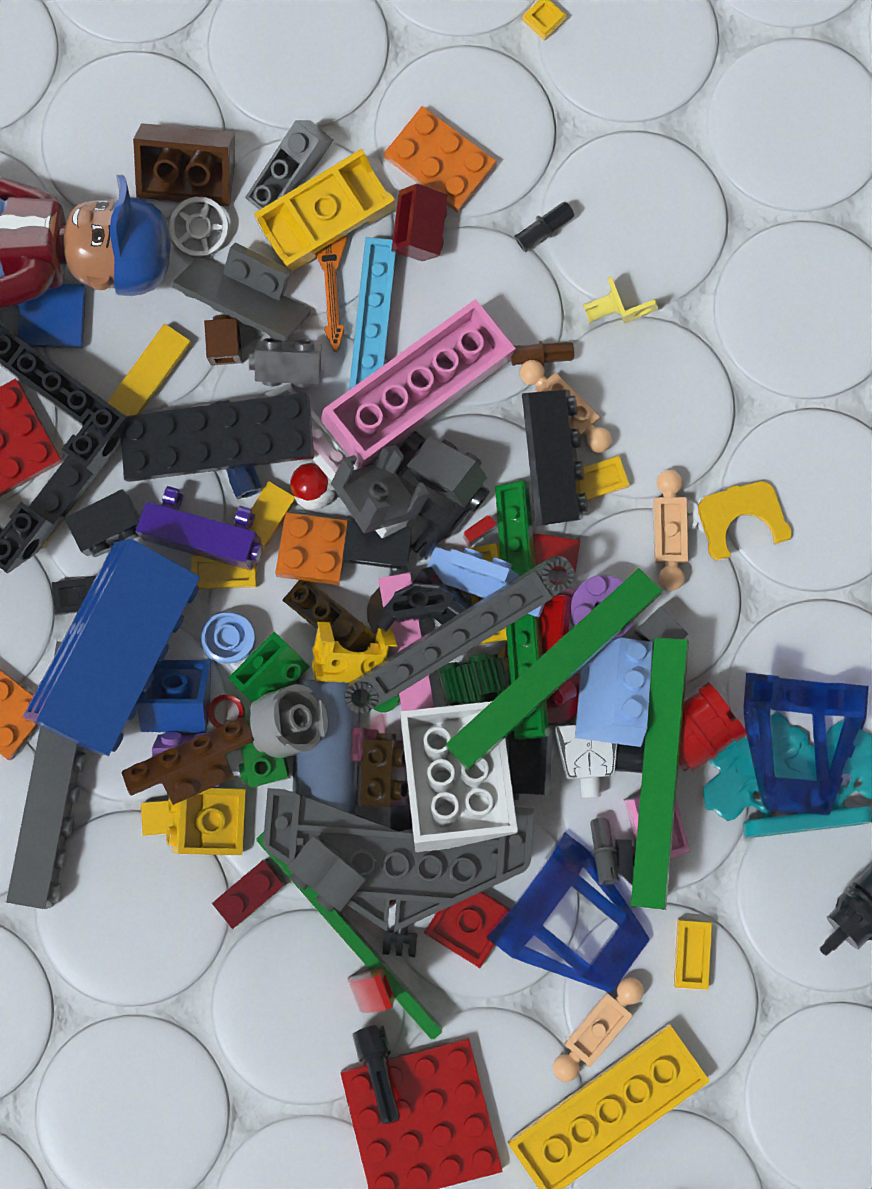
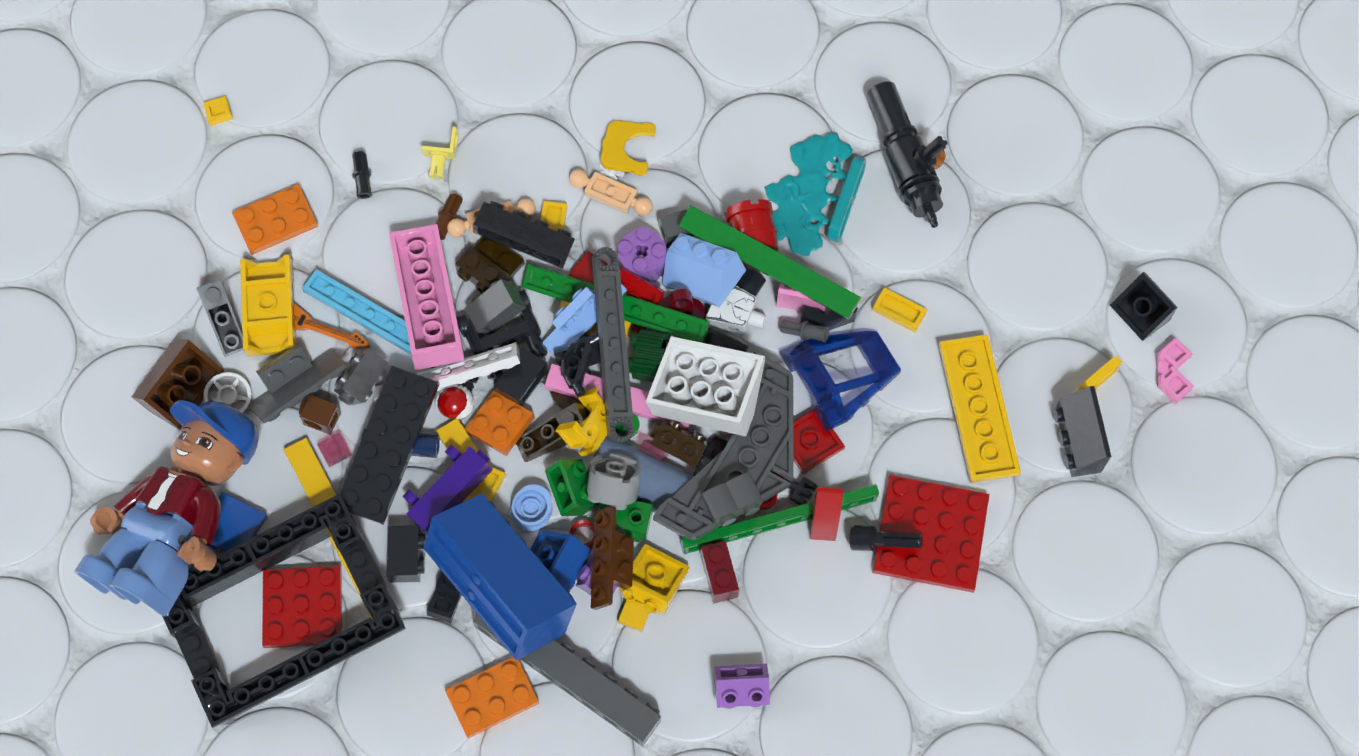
camera: 70 degrees left, 15 degrees down
(125, 984) = (742, 685): none -> medium lavender brick
(193, 379) = (334, 449): none -> clear pink tile
(376, 493) = (486, 353): dark grey panel -> none
(419, 222) = (313, 248): dark red brick -> none
(479, 530) = (546, 309): red tile -> none
(498, 435) = (487, 264): none -> dark brown plate
(553, 669) = (668, 293): green tile -> none
(598, 1029) = (921, 389): light nougat plate -> none
(804, 697) = (771, 156): clear blue windscreen -> none

